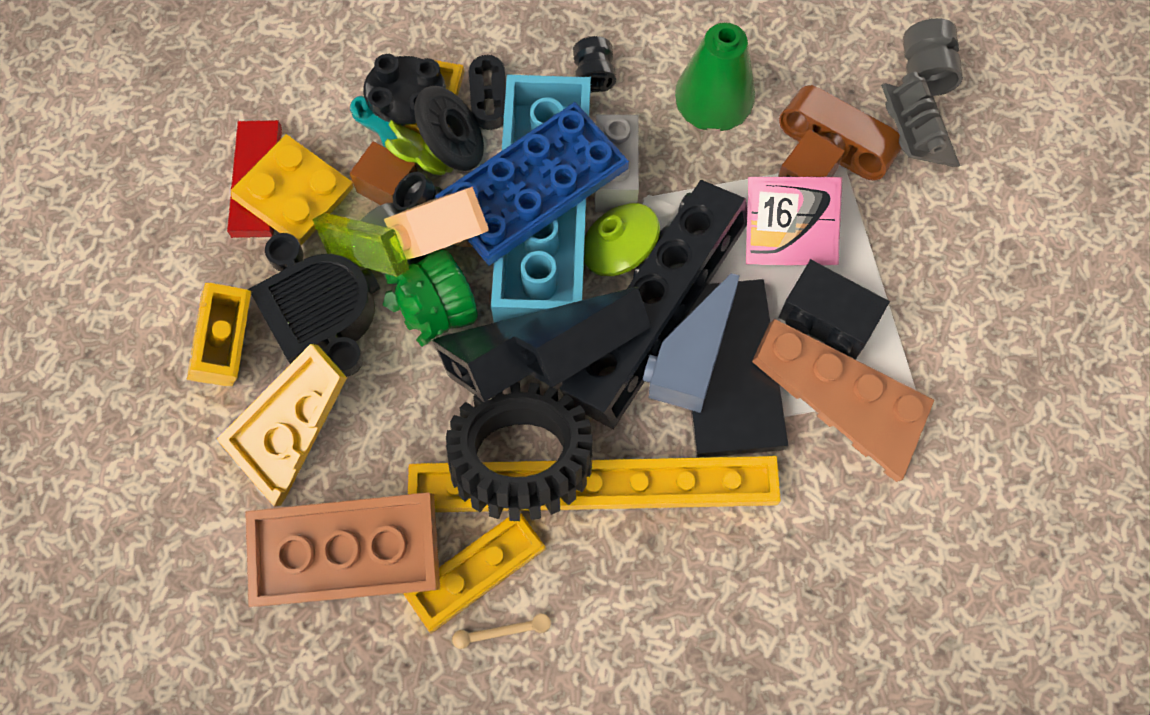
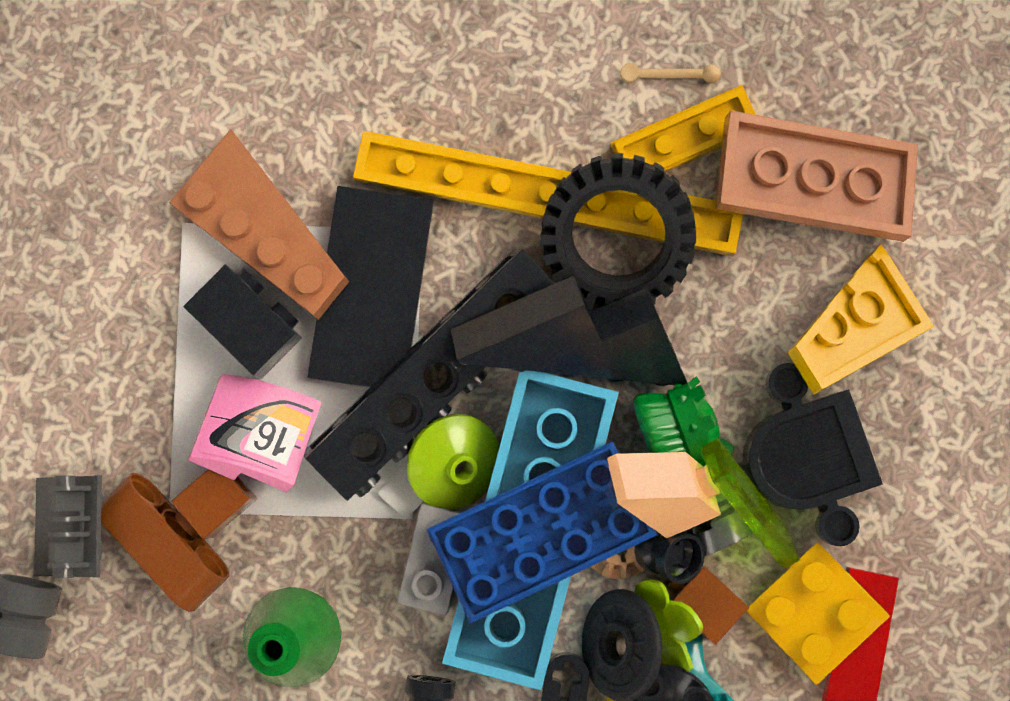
camera: 160 degrees left, 15 degrees up
(219, 334) = (920, 439): yellow brick -> none
(690, 352) = (413, 297): sand blue slope -> none

